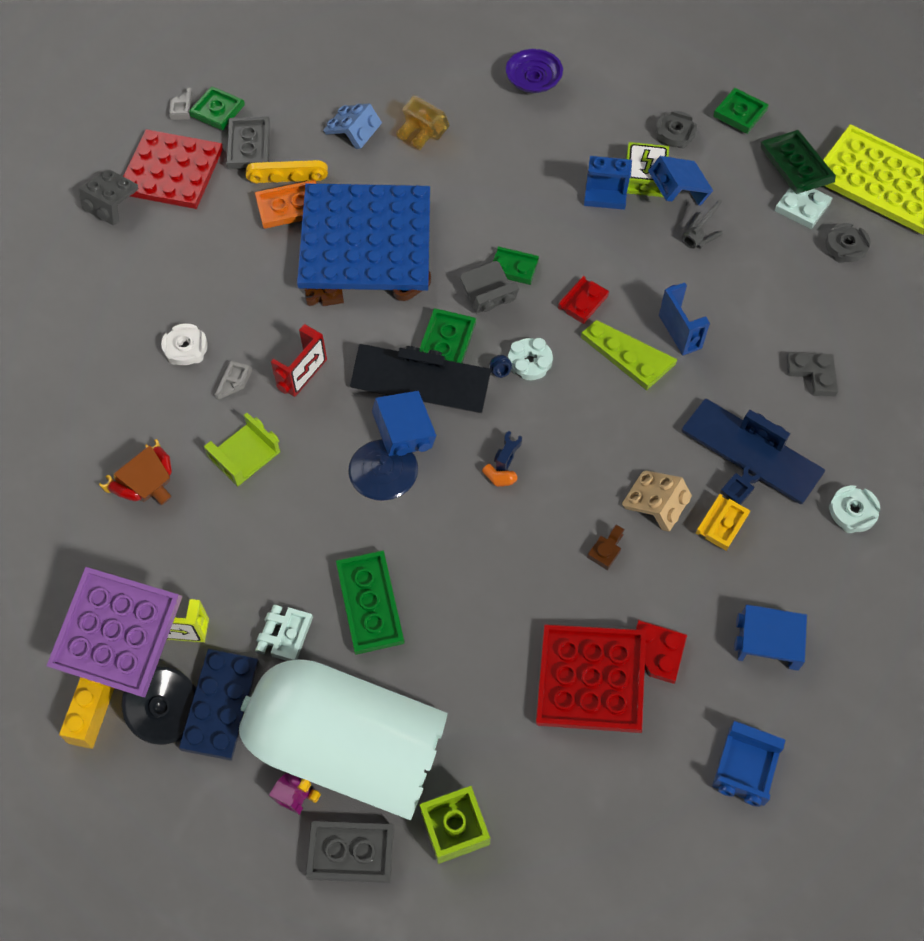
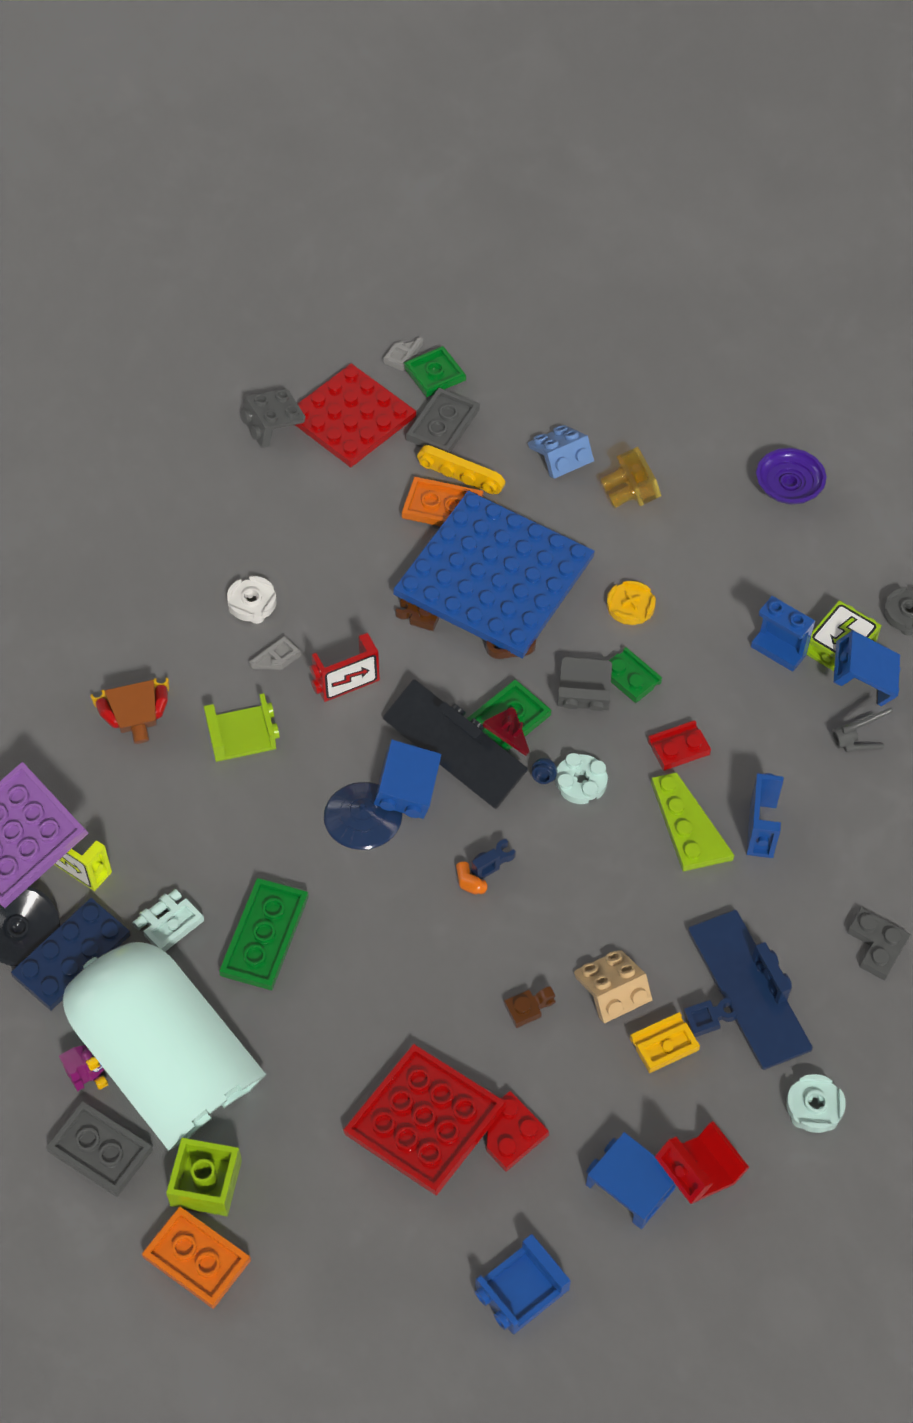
camera: 30 degrees right, 5 degrees down
(455, 346) = (509, 729): none -> dark red piece
(478, 213) = (631, 603): none -> yellow tile
(488, 894) = (196, 1257): none -> orange plate
(815, 596) = (702, 1164): none -> red panel

